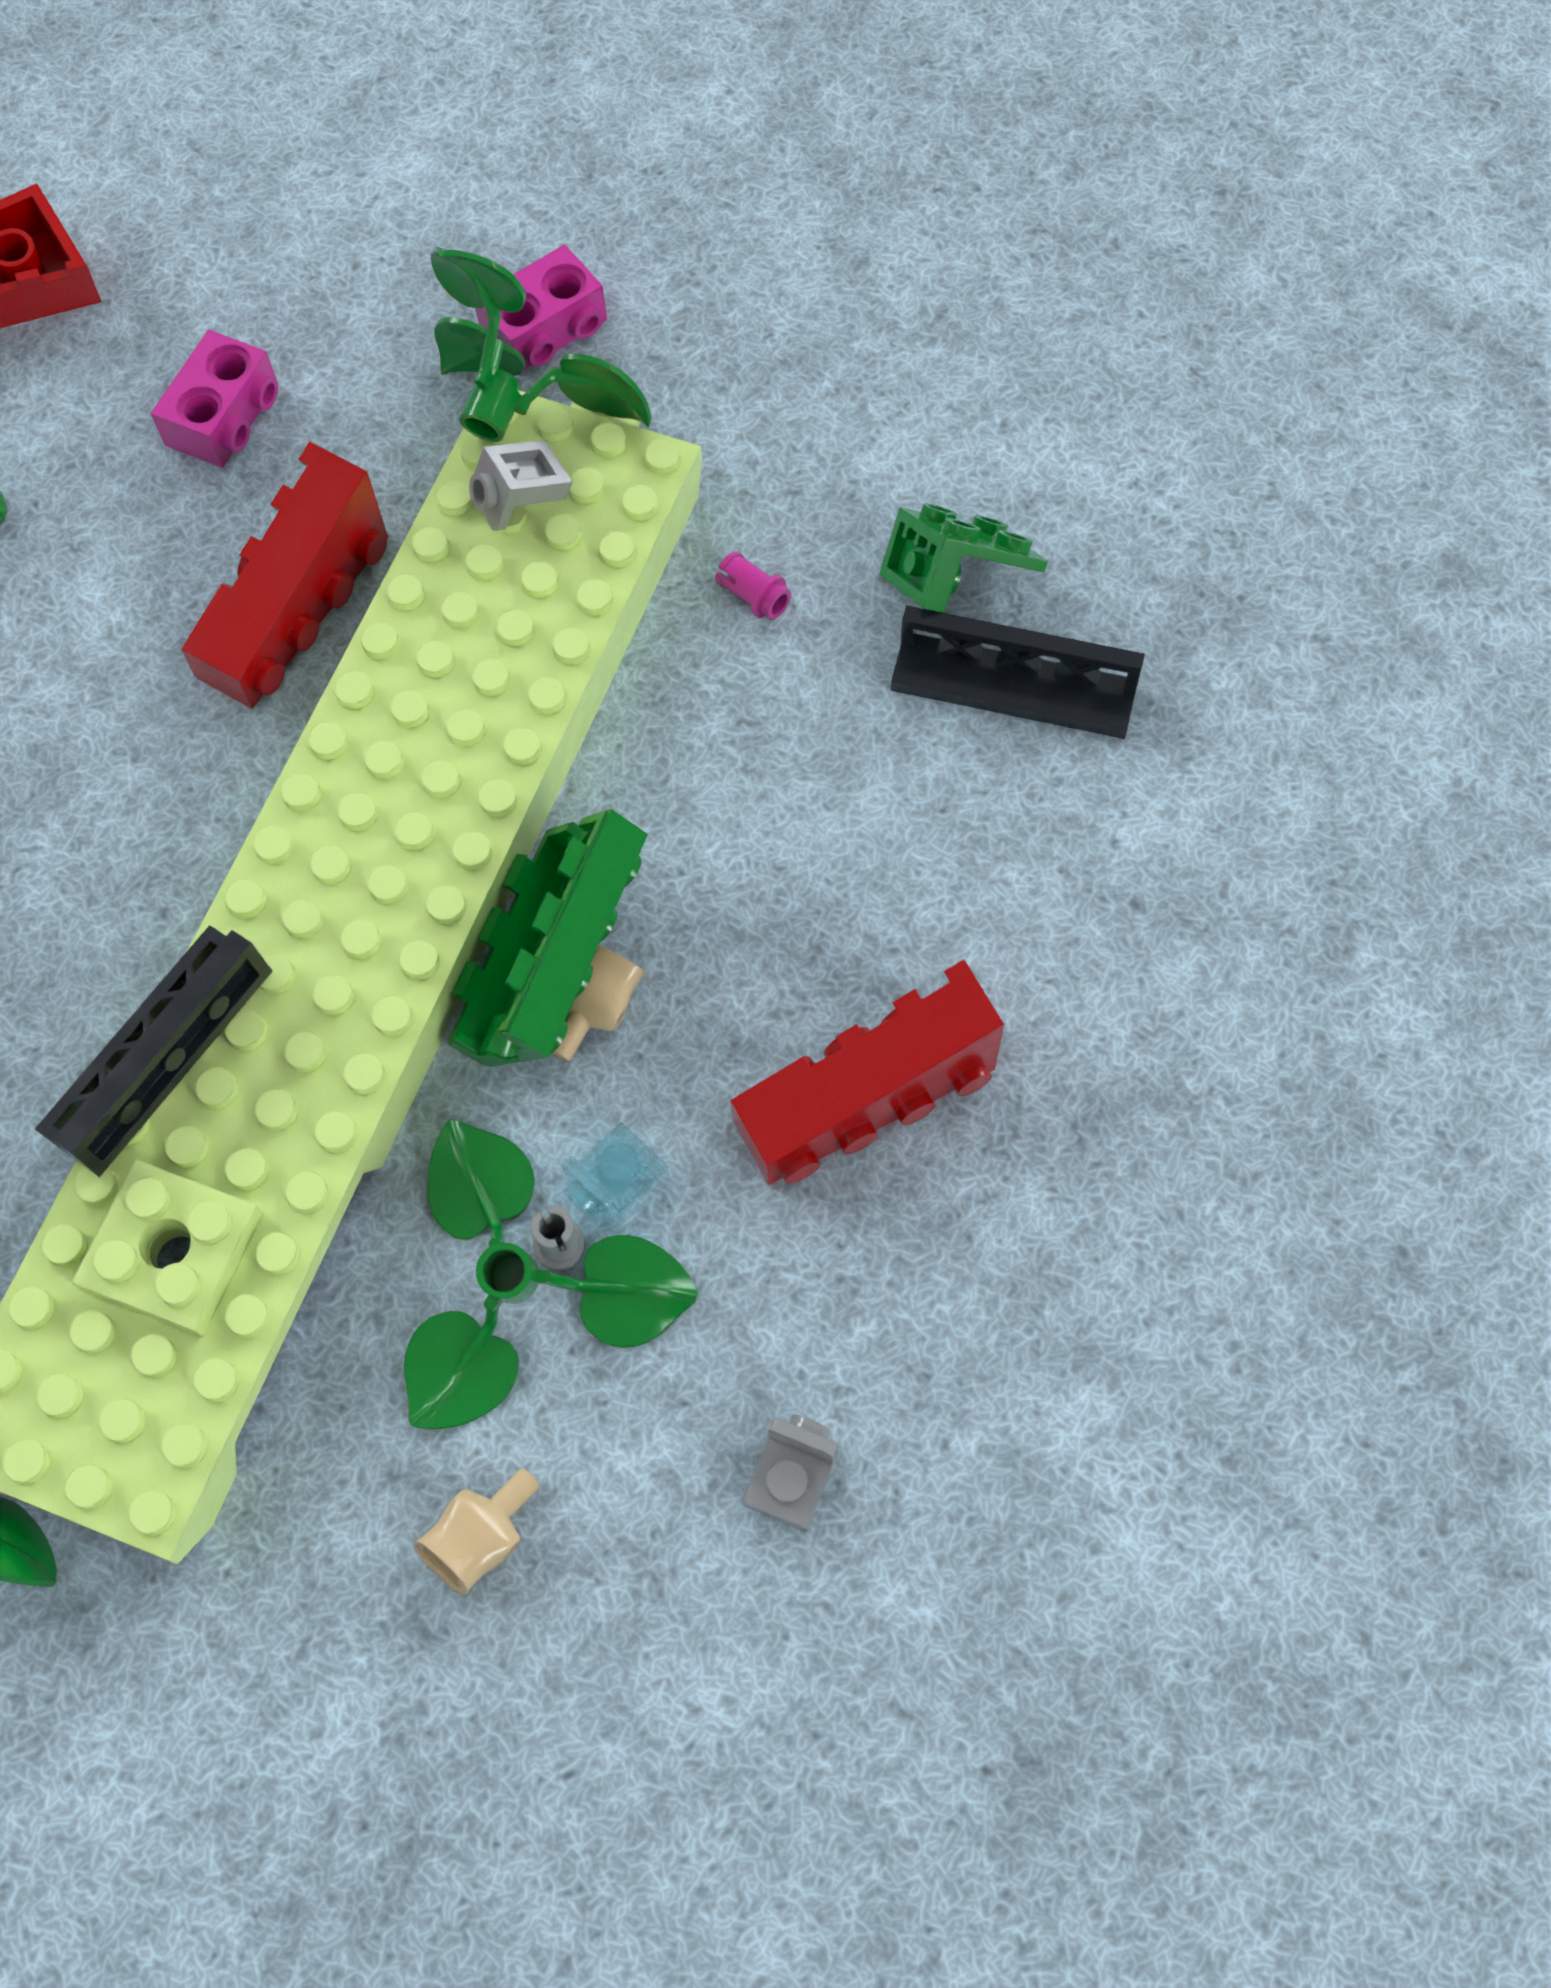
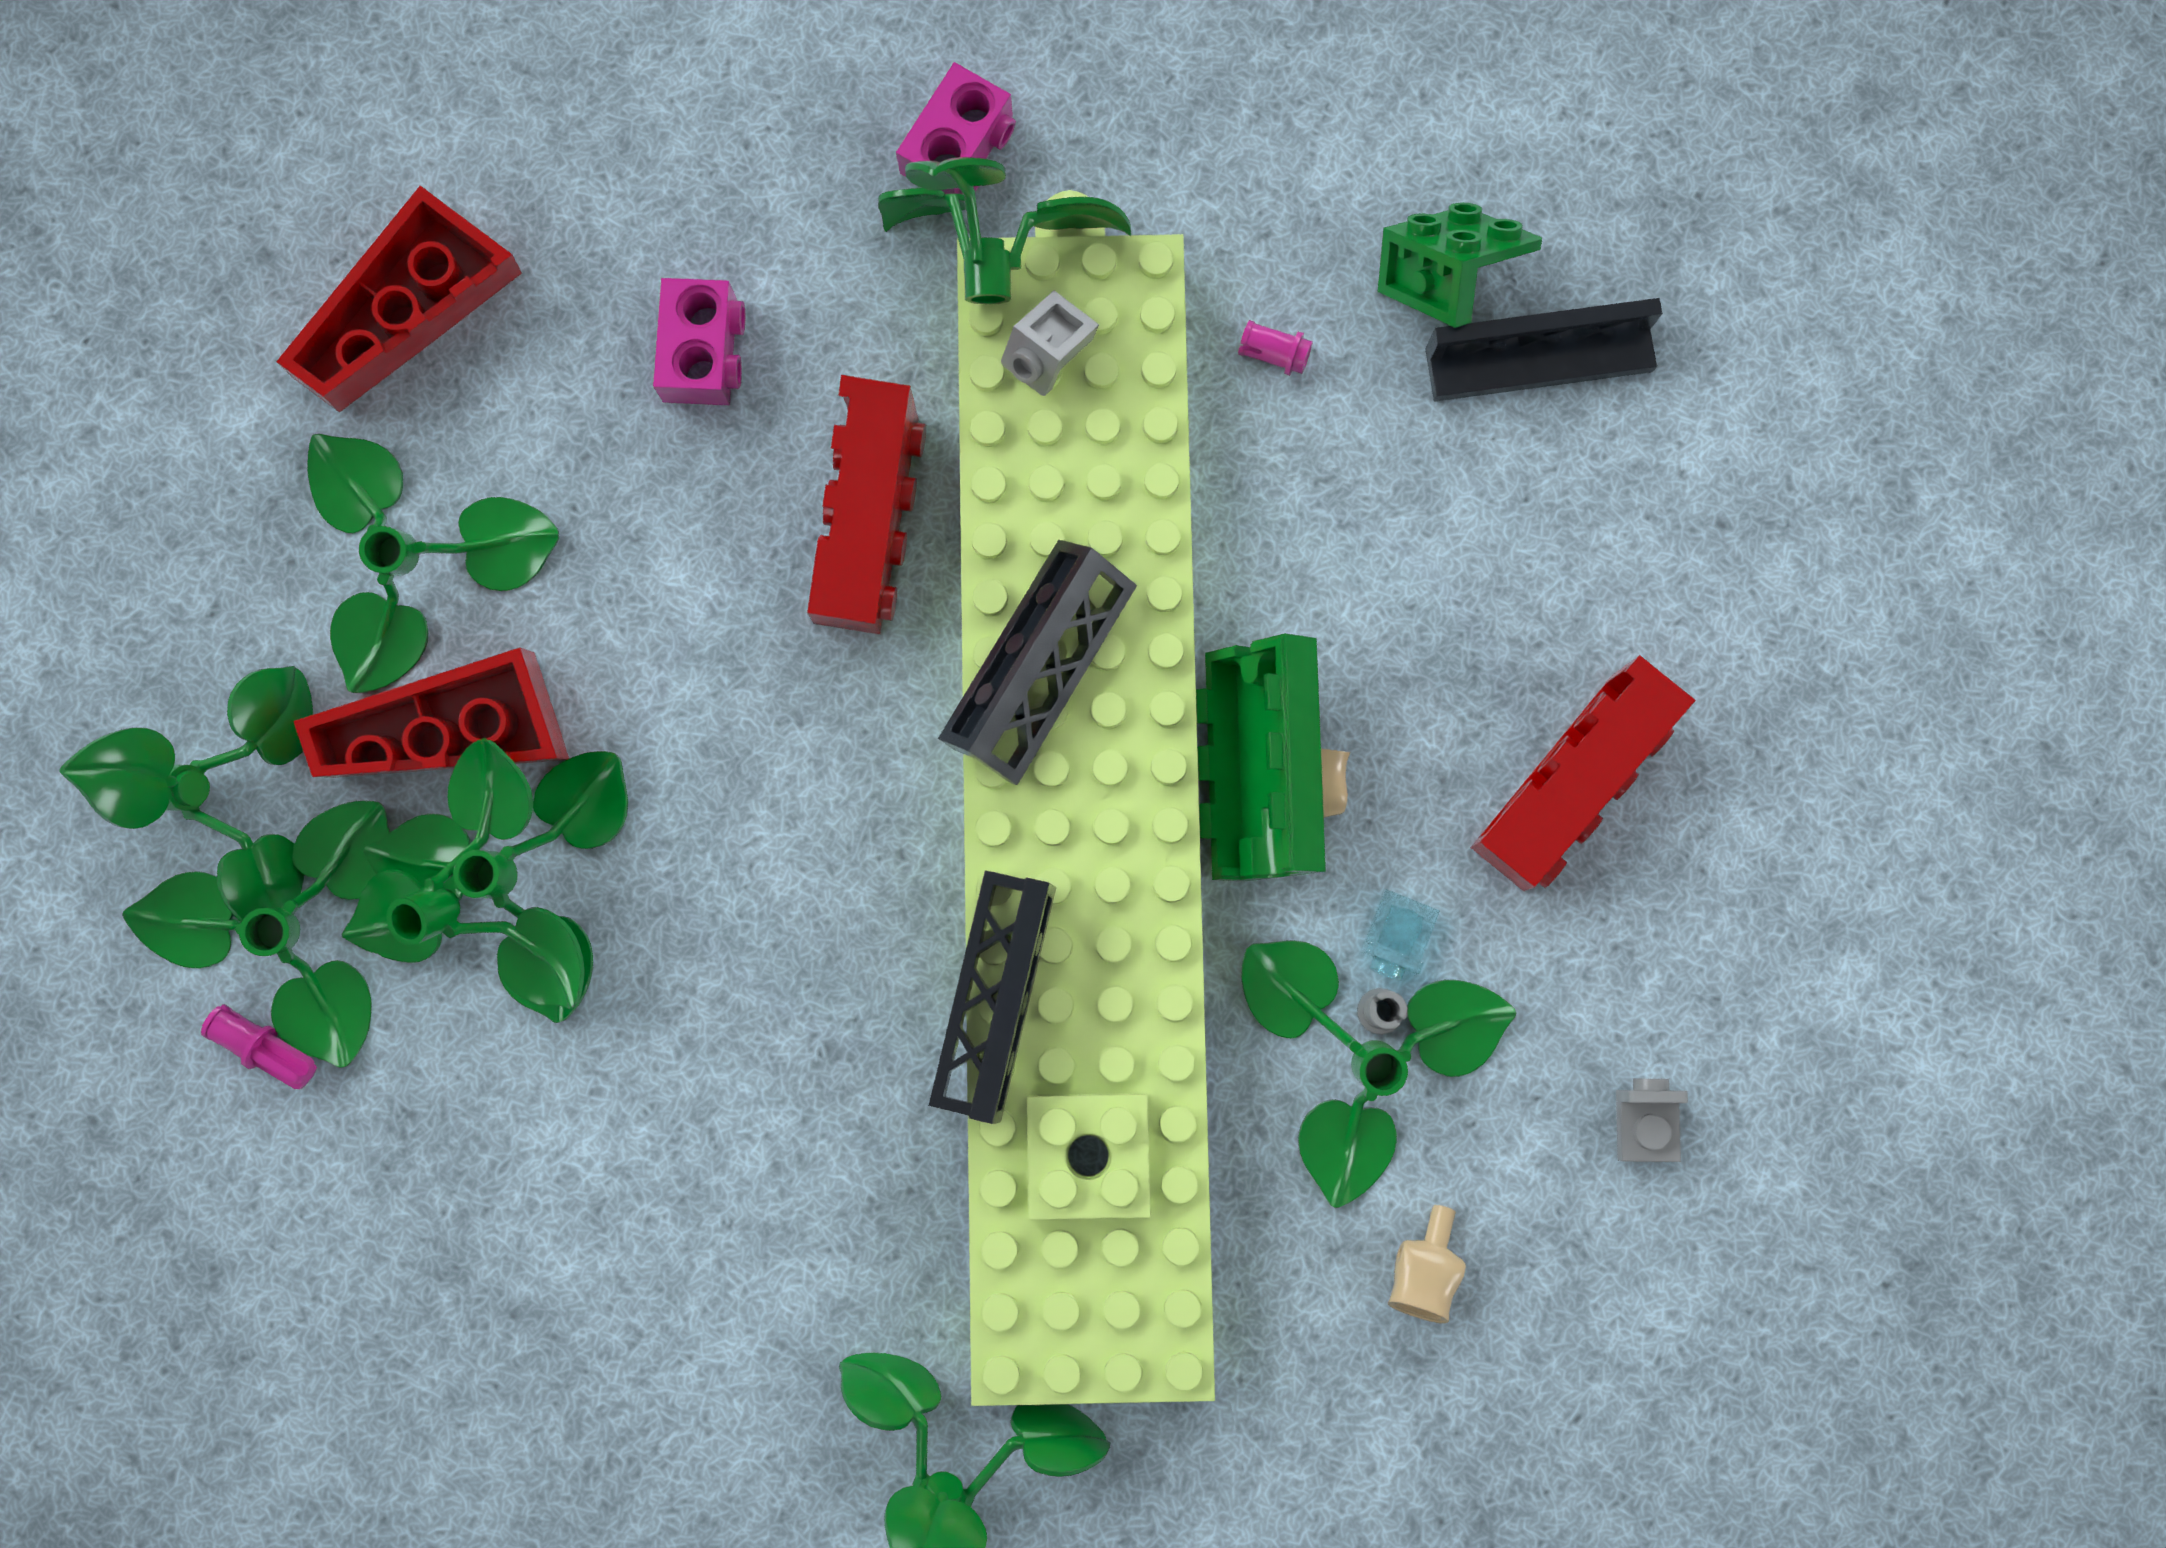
camera: 25 degrees left, 15 degrees up
(350, 734) = (1024, 648): none -> black fence

